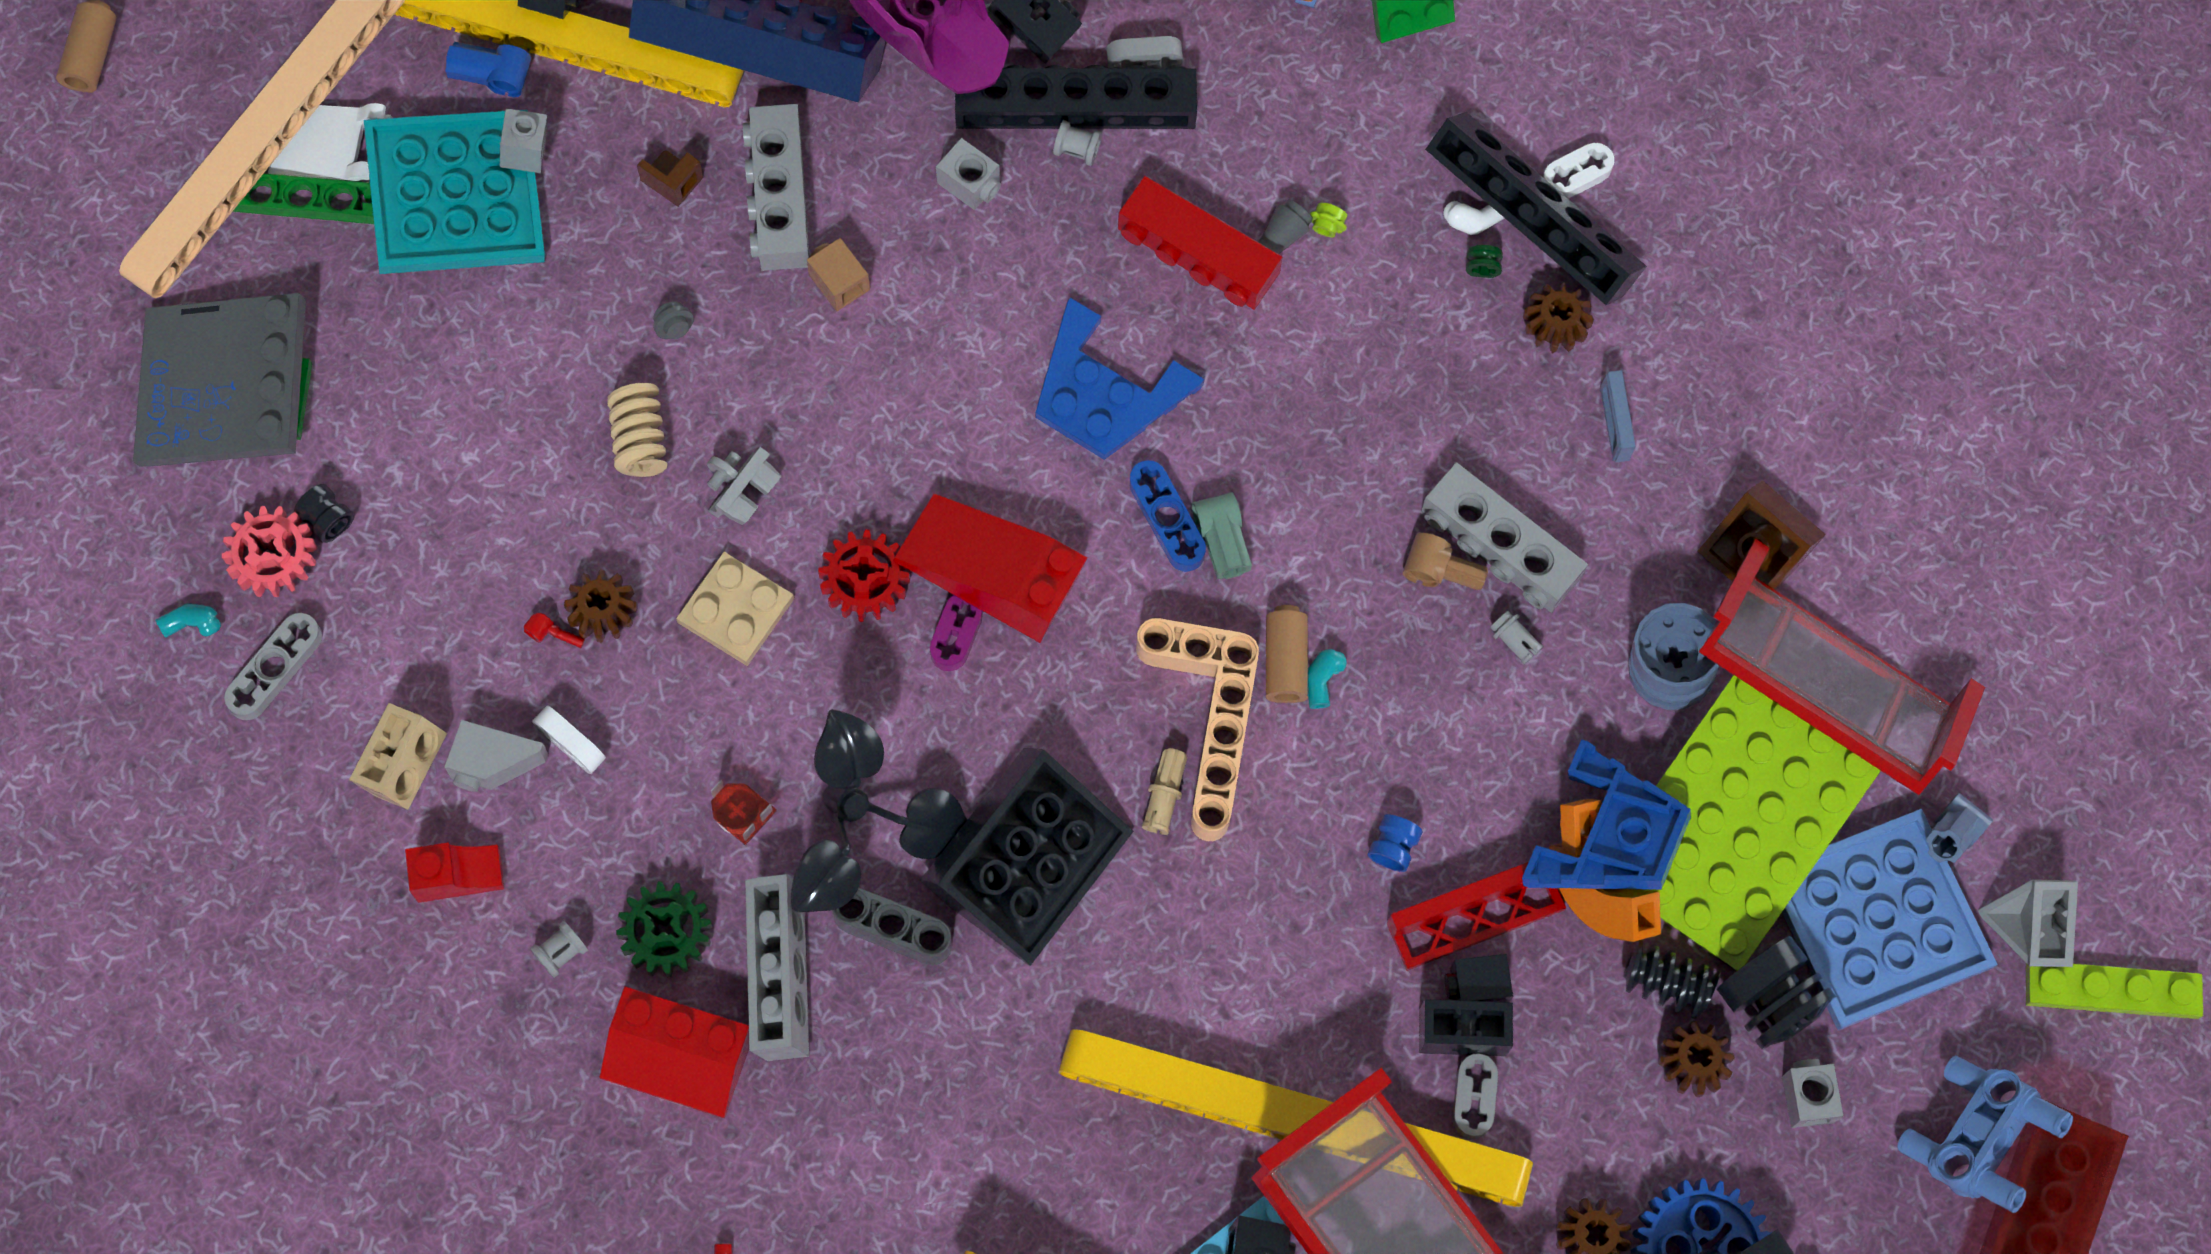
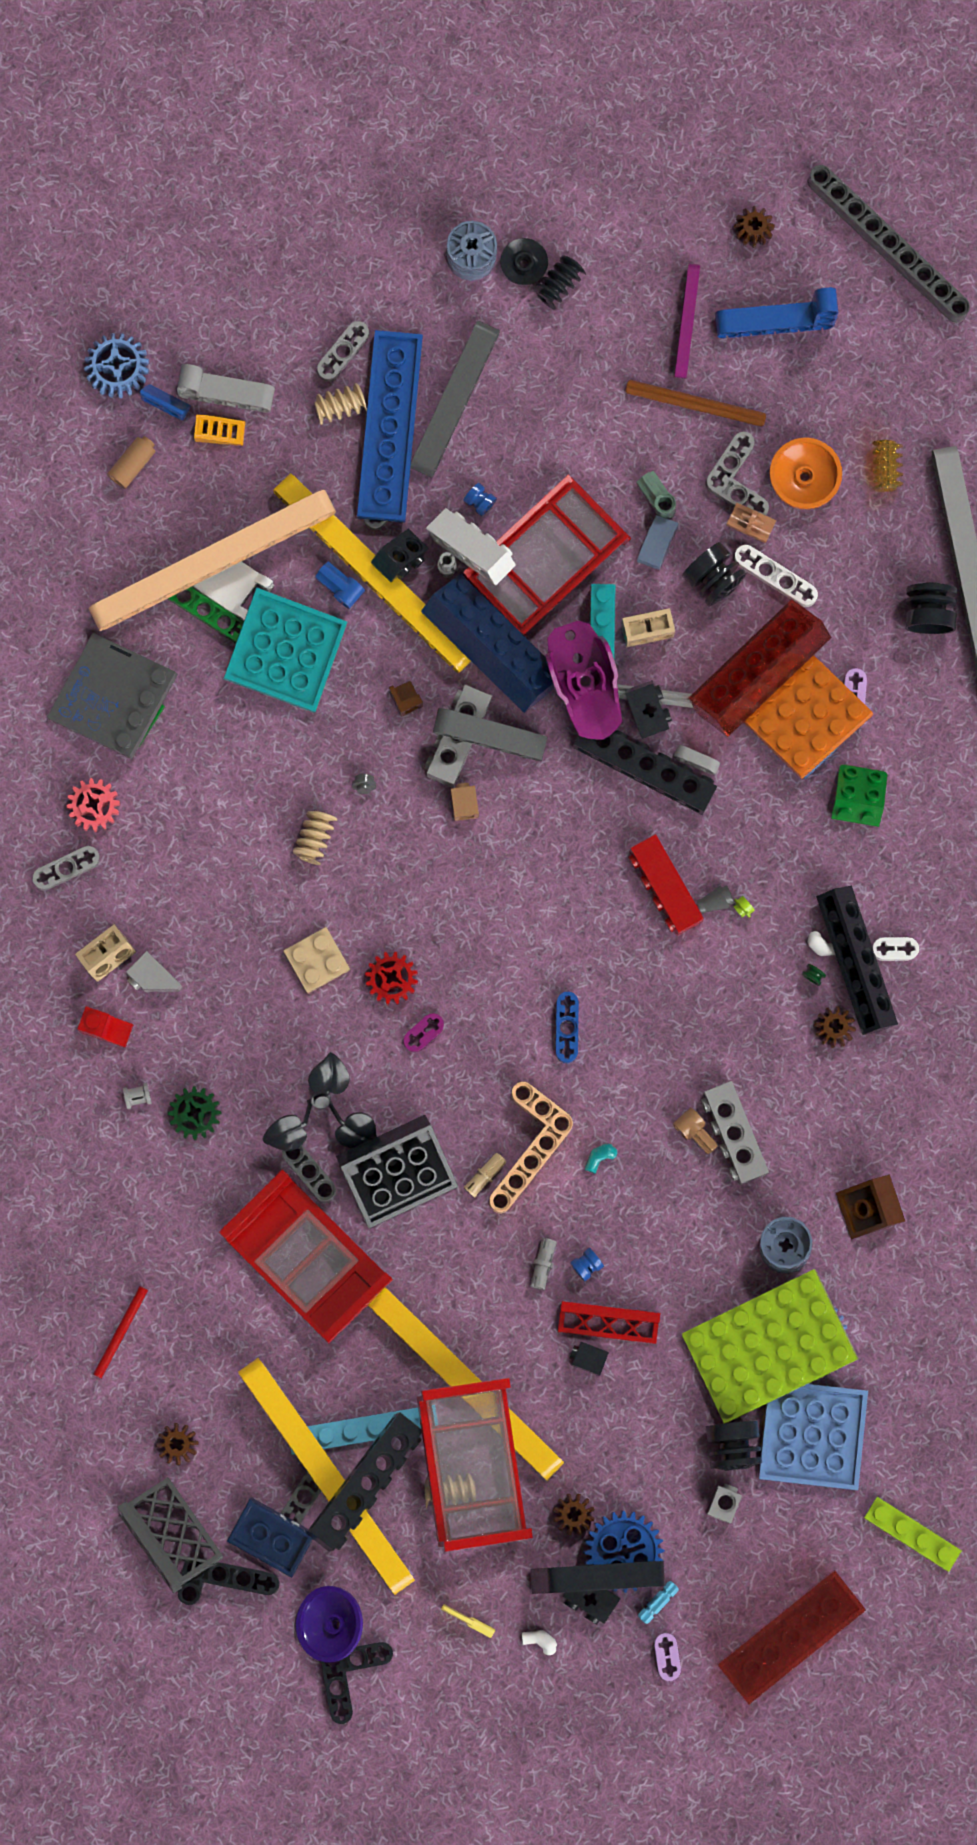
camera: 25 degrees right, 10 degrees up
(190, 615) = (37, 818): teal arm -> none
(324, 513) = (131, 798): black wheel -> none
(523, 140) = (335, 643): light grey brick -> none
(540, 625) = (210, 918): red hand -> none
(568, 739) = (196, 987): white beam -> none
(589, 617) = (254, 917): reddish brown gear -> none
(675, 1052) = (168, 1180): red slope -> none
(740, 810) = (263, 1071): clear red piece -> none
(753, 471) = (344, 900): light grey hips -> none
(776, 970) = (239, 1165): light grey brick -> none
(822, 154) = (490, 734): none -> dark grey beam
(955, 1057) = (305, 1256): none -> red piece
(963, 160) = (564, 771): light grey brick -> none
(992, 564) = (459, 1007): red slope -> none
(1077, 143) = (632, 793): light grey bush -> none
(1093, 401) = (563, 944): blue wing -> none
(1220, 528) = (590, 1047): sand green piece -> none
(1286, 655) = (587, 1136): medium nougat brick -> none
(1328, 878) = (543, 1263): none -> light grey pin
(1465, 1027) = (567, 1378): black brick -> none
(1486, 1096) = (550, 1409): light grey beam -> none
(1514, 635) = (712, 1187): light grey pin -> none
(1611, 912) = (673, 1339): orange arch -> none
(1617, 416) = (834, 1098): sand blue tile -> none
(1630, 839) = (703, 1328): blue wing -> none
(1670, 979) = (685, 1408): black piece -> none
(1700, 1074) = (671, 1461): reddish brown gear -> none
(1837, 681) = (858, 1302): clear piece -> none
(1956, 829) = (881, 1410): sand blue piece -> none
(1984, 1133) = (796, 1569): medium blue piece -> none
(2037, 921) = (891, 1480): light grey slope -> none

